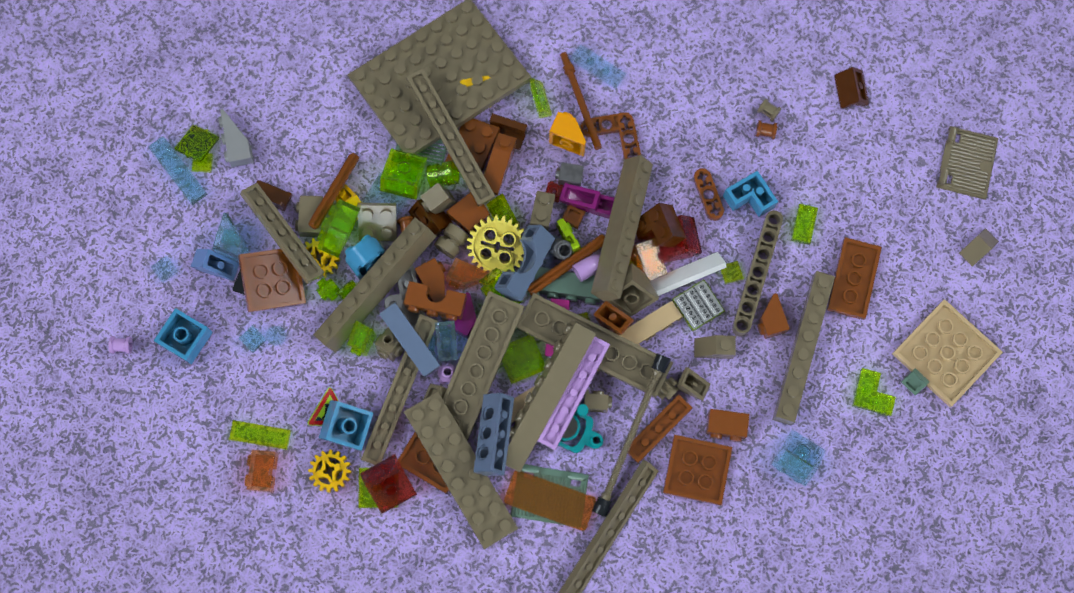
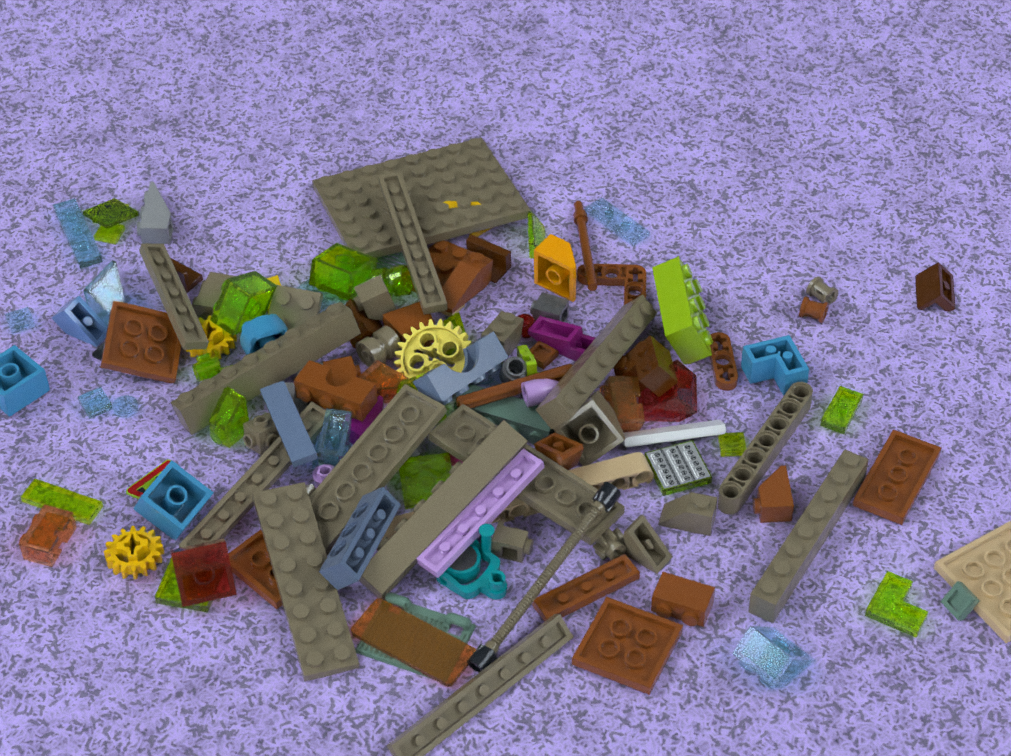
camera: 15 degrees right, 30 degrees down
(333, 191) = (264, 268): dark orange axle -> none
(672, 160) = (682, 310): none -> lime brick

